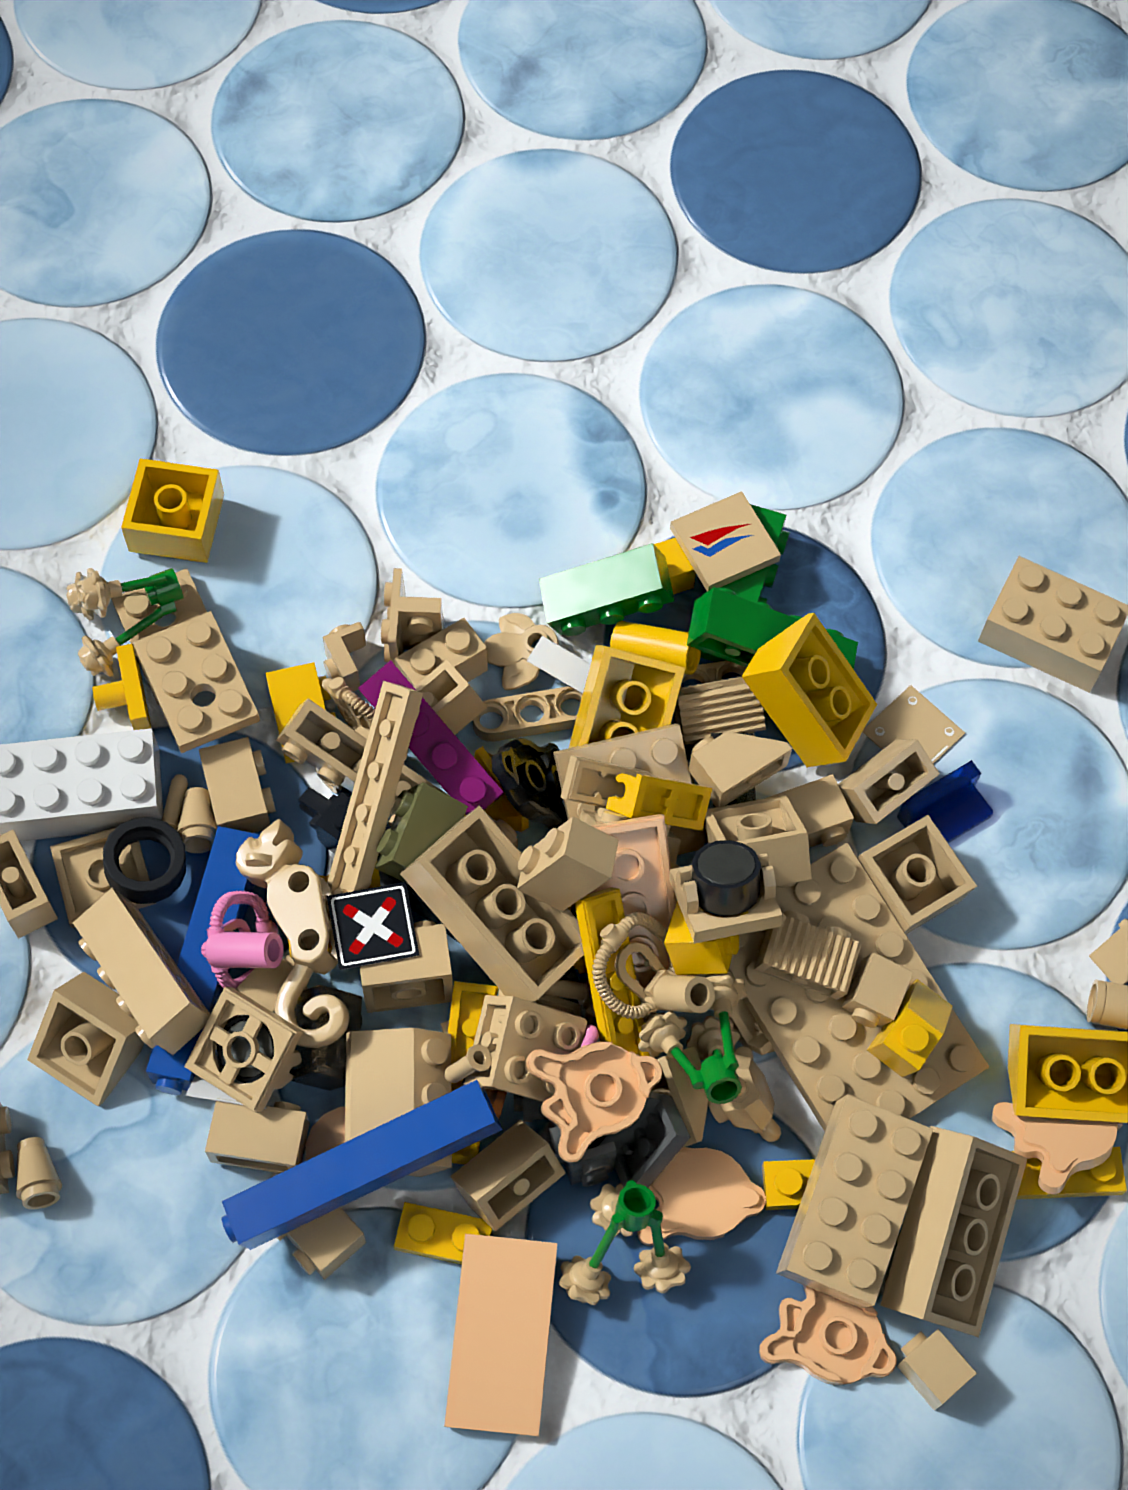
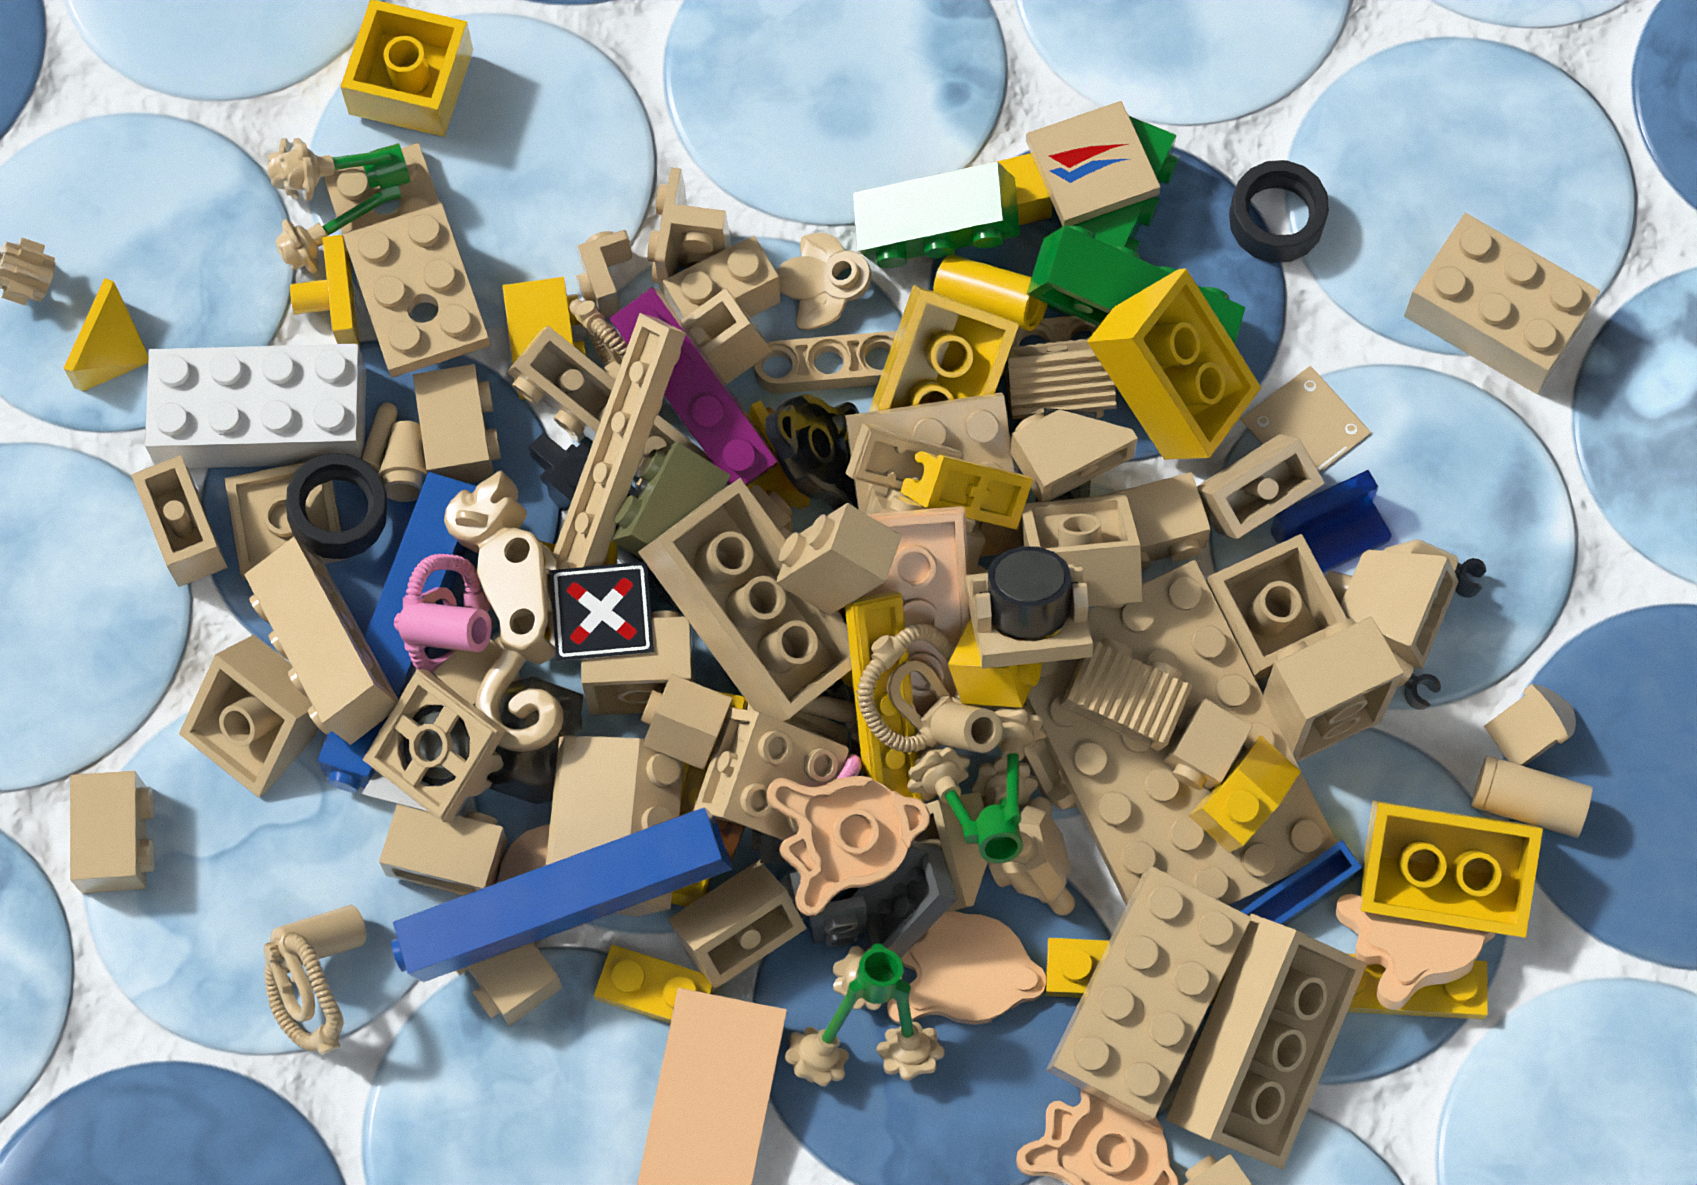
camera: 10 degrees right, 5 degrees up
(36, 1175) = (179, 871): tan cone -> none
(147, 1227) = (305, 944): none -> tan piece
(450, 1009) = (684, 720): none -> tan brick
(477, 1059) = (708, 783): tan piece -> none
(560, 663) = (868, 302): white sticker -> none
(878, 542) = (1289, 177): none -> black tyre
(968, 1098) = (1307, 886): none -> blue piece
(971, 933) = (1332, 686): none -> tan brick
(1010, 866) = (1408, 597): none -> tan torso

